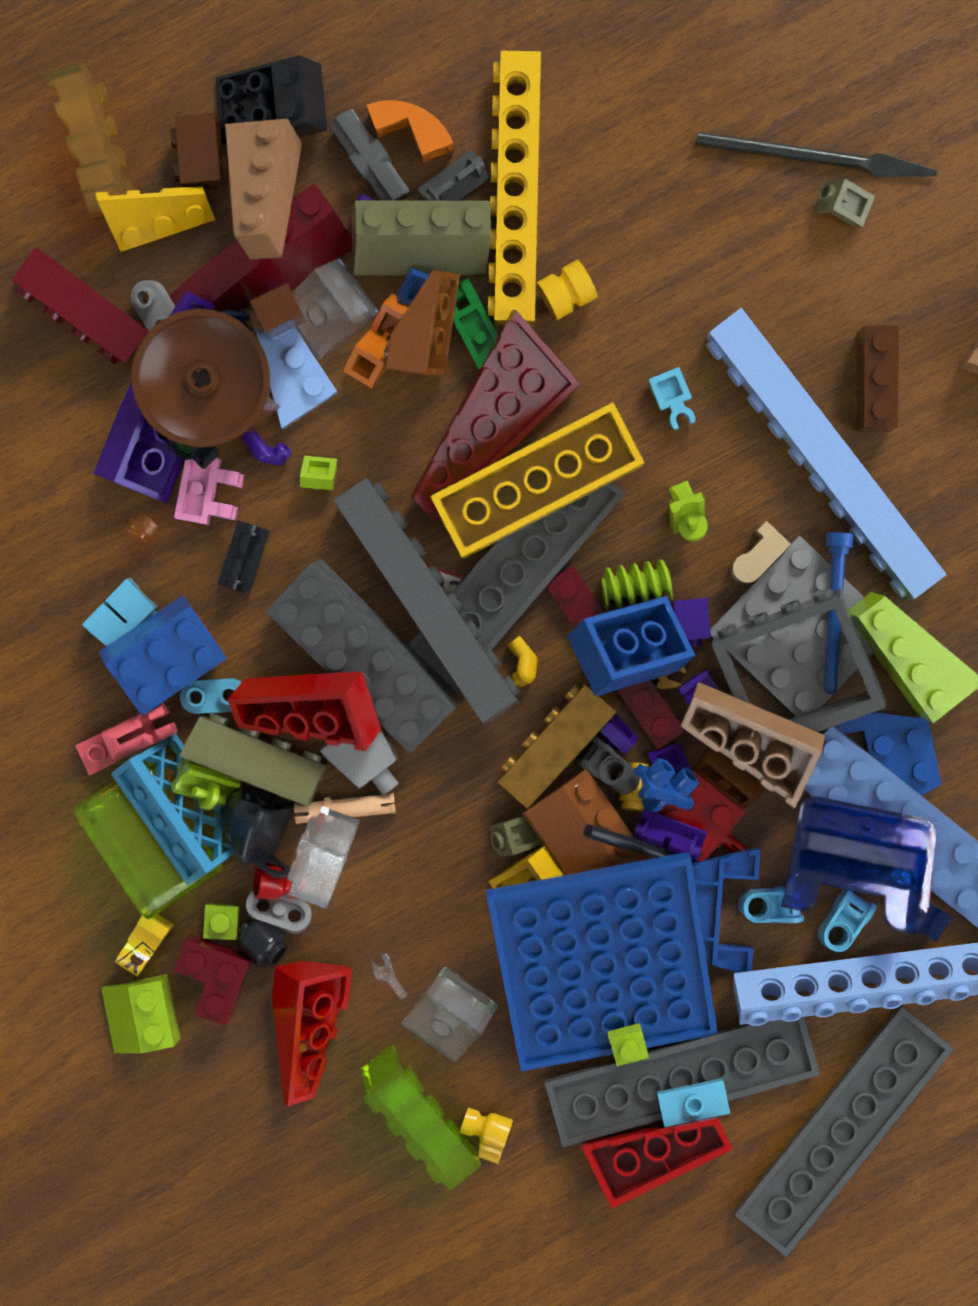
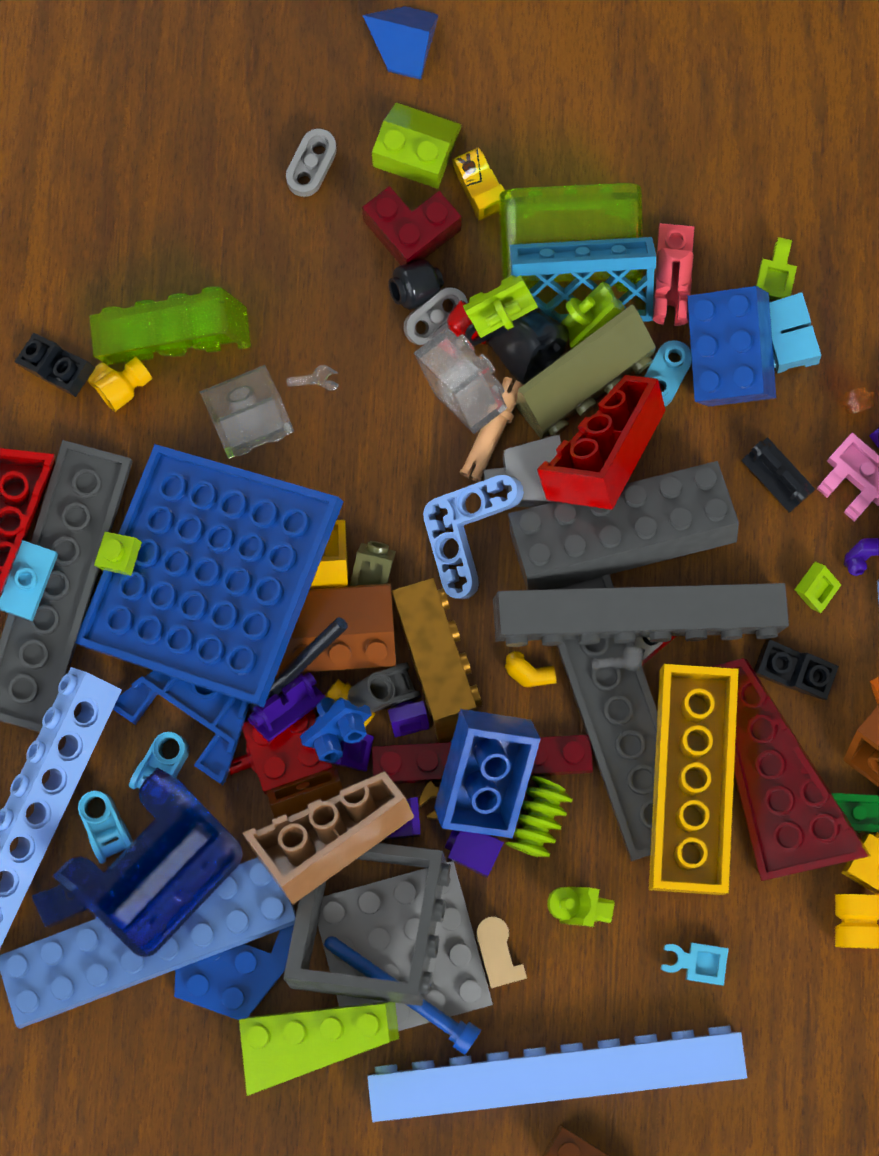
camera: 125 degrees right, 10 degrees down
(55, 1081) = (403, 38): none -> blue slope
(78, 654) = (775, 274): none -> lime plate
(210, 1090) = (310, 164): none -> light grey plate
(221, 921) = (456, 261): lime plate -> none
(246, 861) = (500, 306): none -> lime hips
(305, 1012) = (326, 285): red wedge -> none
(395, 452) = (795, 670): none -> black slope
(437, 792) = (456, 519): none -> light blue beam
(468, 586) = (631, 660): none -> clear hand
(503, 1193) = (54, 364): none -> black slope

